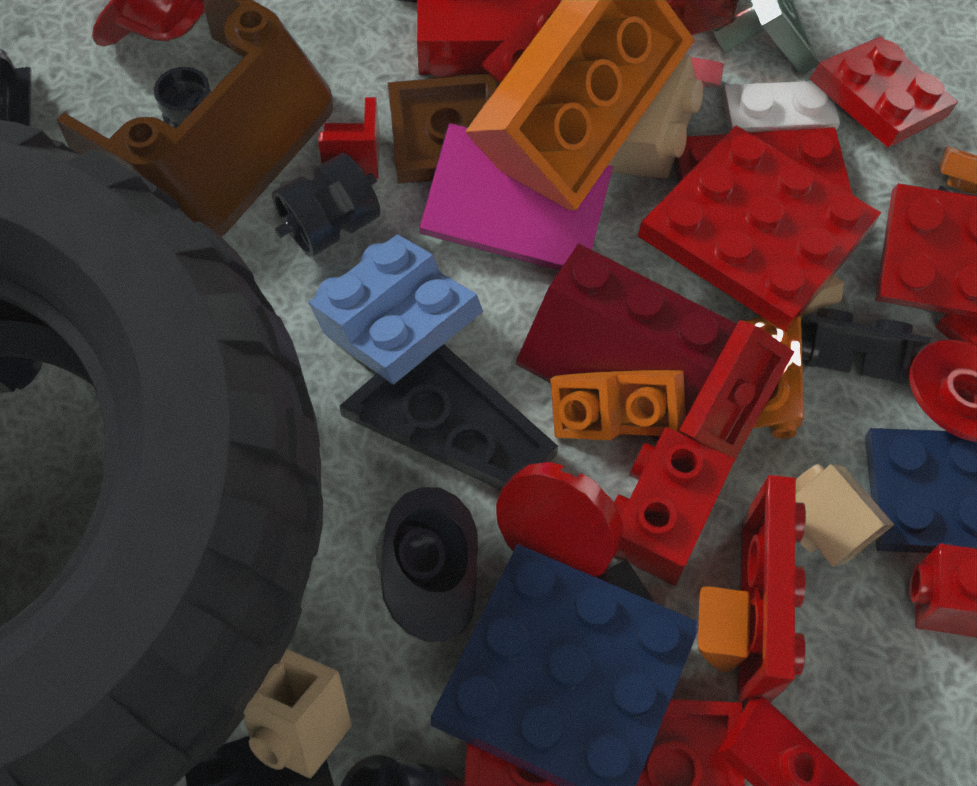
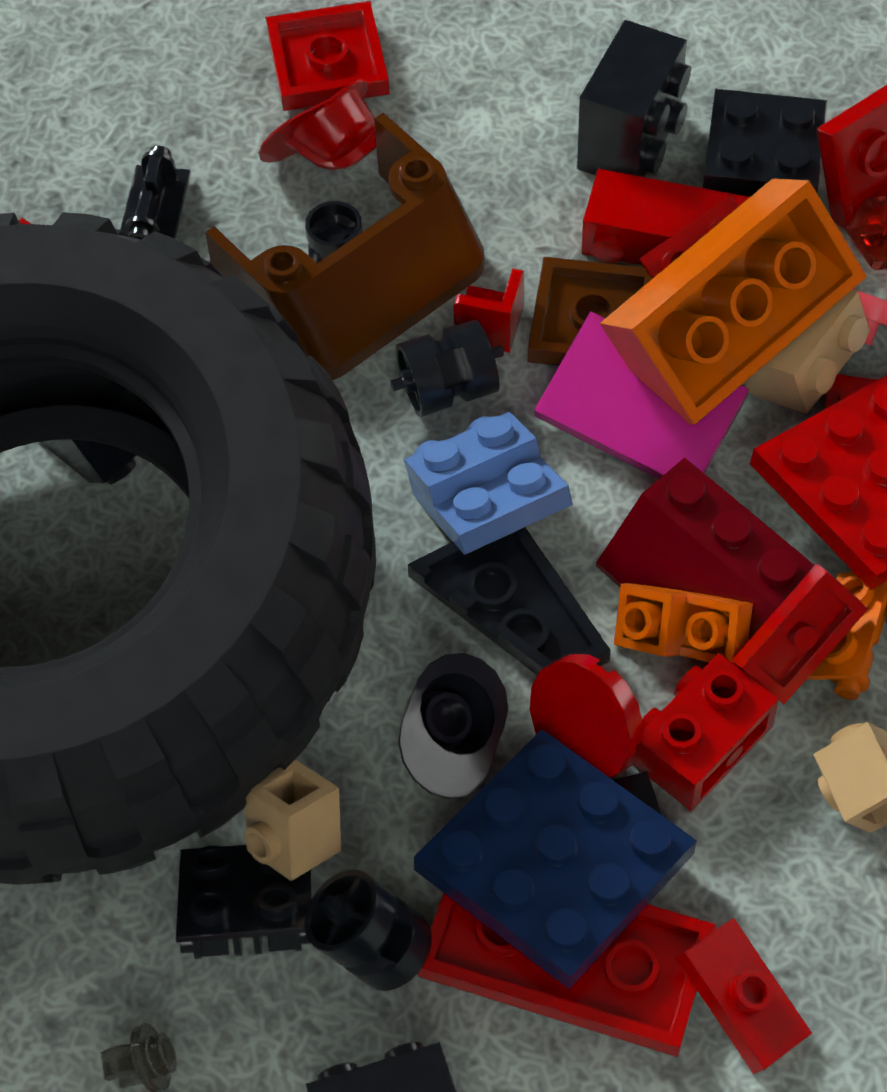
camera: 20 degrees right, 5 degrees down
(724, 627) = (716, 851): orange slope -> none
(775, 589) = (773, 825): red plate -> none

